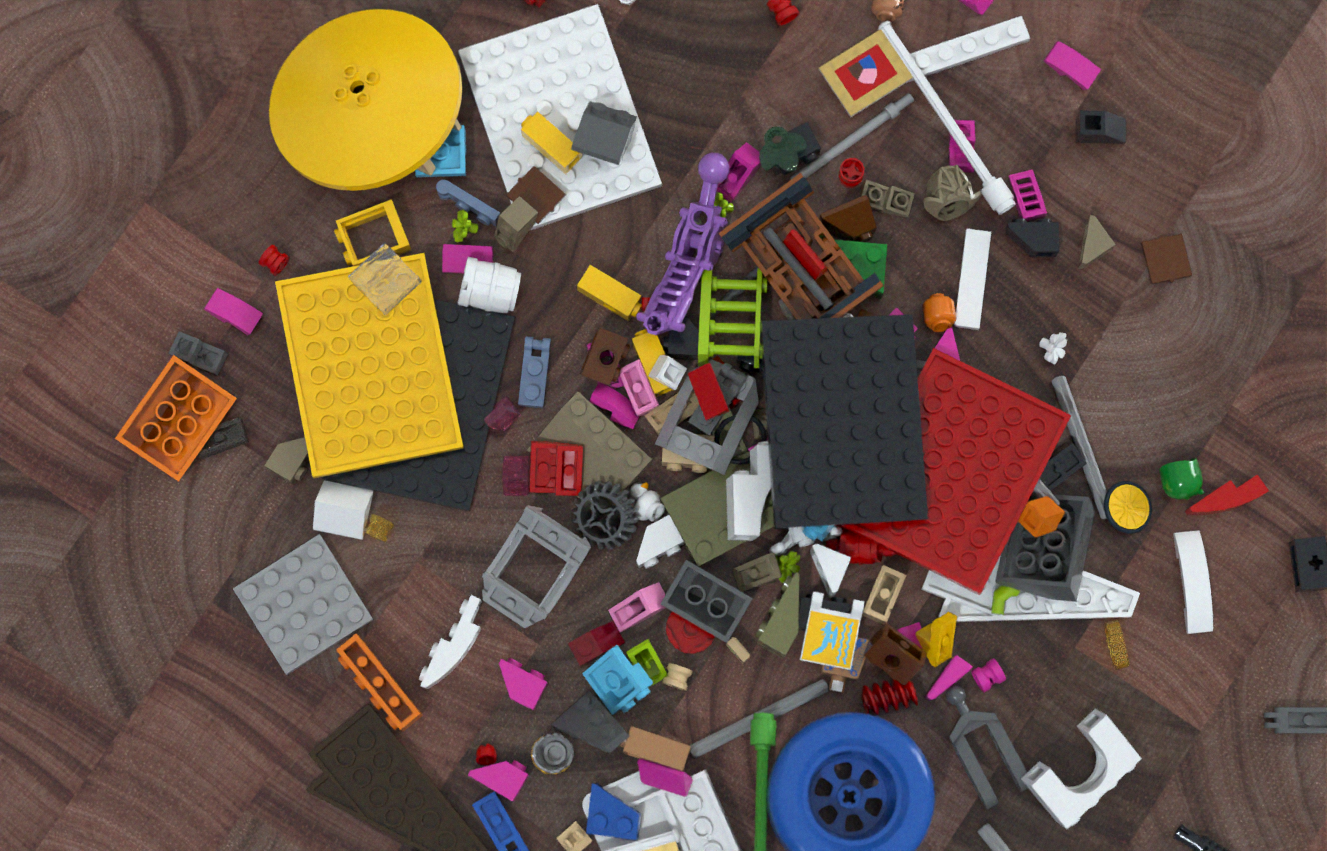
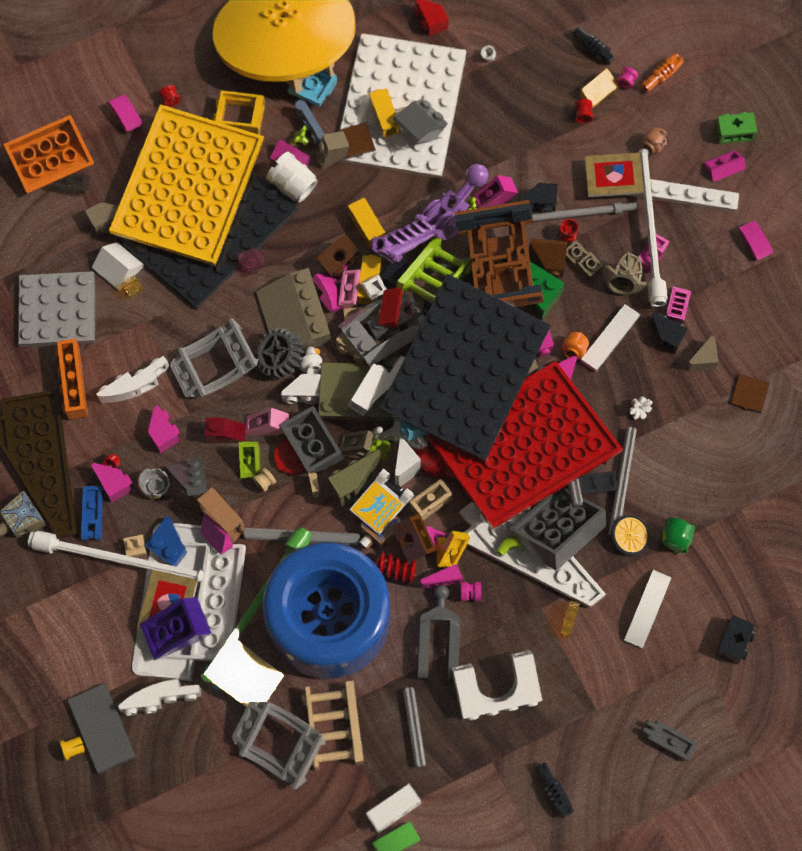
camera: 30 degrees right, 10 degrees down
(198, 353) = (88, 127): dark grey slope -> none
(384, 279) = (228, 137): clear slope -> none
(515, 475) = (238, 301): clear pink bracket -> none
(534, 373) = (289, 247): sand blue plate -> none
(555, 468) = (266, 309): red slope -> none
(618, 681) = (223, 459): medium azure plate -> none
(782, 153) = (529, 191): clear green plate -> none
(798, 269) = (494, 261): dark grey bar -> none
(805, 254) = (503, 255): red slope -> none
(1041, 516) = (564, 501): orange panel -> none
(1100, 127) = (751, 286): black slope -> none
(1229, 497) = (702, 565): red slope -> none

